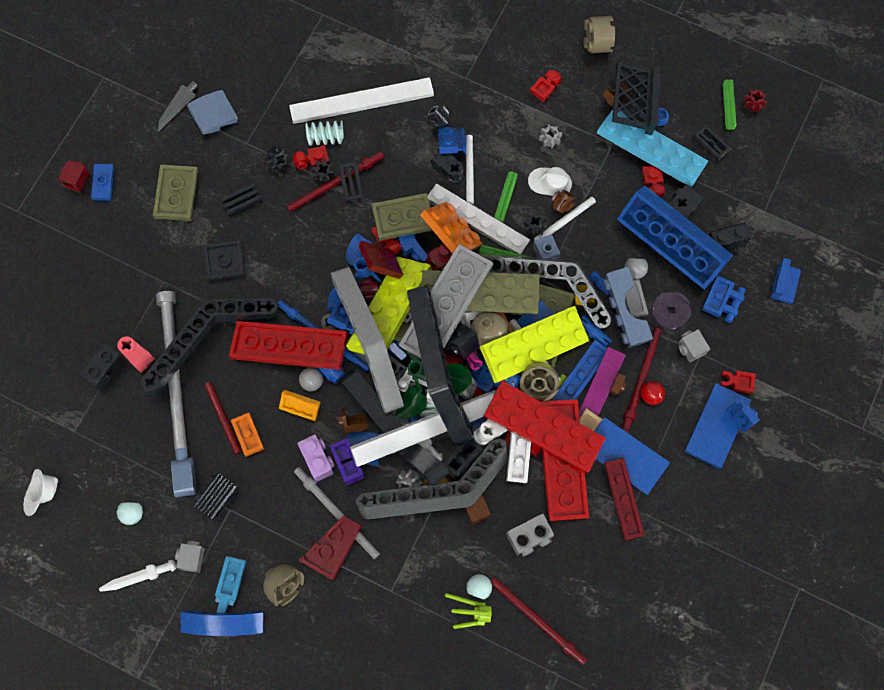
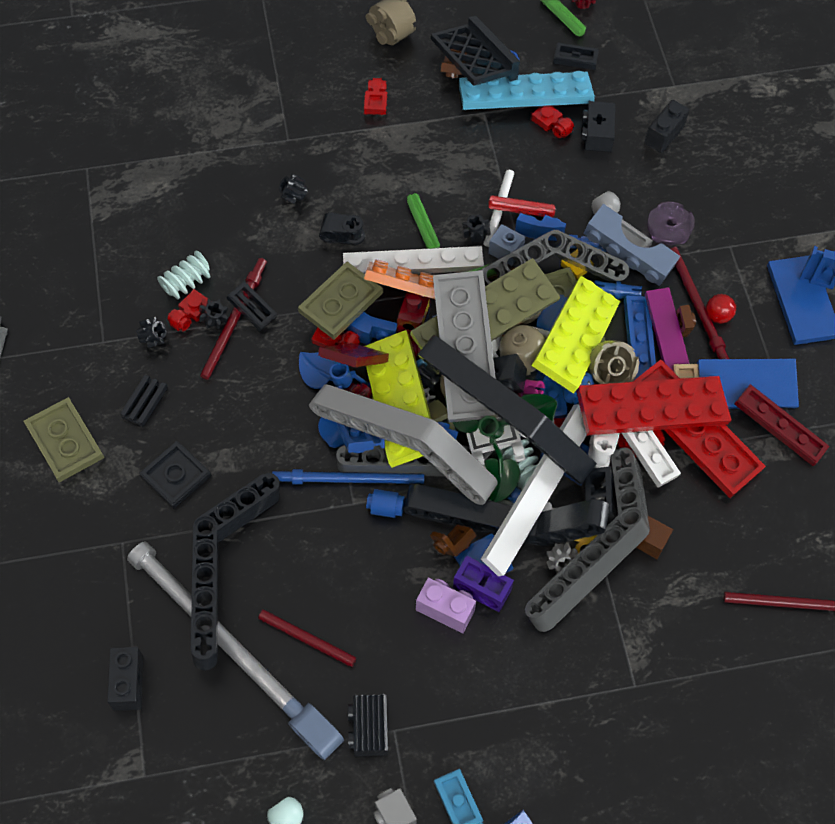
camera: 35 degrees left, 10 degrees down
(137, 355) = (156, 638): coral piece -> none
(212, 112) = (40, 332): sand blue slope -> none
(247, 434) = (350, 634): orange plate -> none
(281, 584) = (518, 762): dark tan cylinder -> none
(288, 345) = (321, 508): red plate -> none
(299, 405) = (382, 563): light orange plate -> none
(310, 379) = (372, 528): light grey piece -> none
(310, 484) = (460, 638): light grey bar -> none
(331, 550) = (541, 685): dark red wing -> none
(361, 100) = (195, 225): white tile -> none
(451, 140) = (326, 202): blue plate -> none
(469, 169) = (367, 223): white bar -> none
(479, 586) = (721, 611): light aqua piece -> none
(480, 613) = (744, 637): lime plant -> none
(528, 531) = (722, 522): light grey brick -> none
(549, 180) = (454, 181): white piece -> none
(550, 136) = (420, 139): light grey gear -> none
(563, 201) = (484, 189): reddish brown gear -> none
(578, 229) = (521, 206): none -> red axle
(583, 256) = (533, 228): none -> blue slope
(674, 237) = (620, 152): blue brick -> none
(693, 345) = (719, 240): light grey brick -> none
(718, 296) = (702, 183): blue plate -> none
(741, 381) = (790, 244): red plate -> none
(785, 282) = (747, 133): blue panel -> none

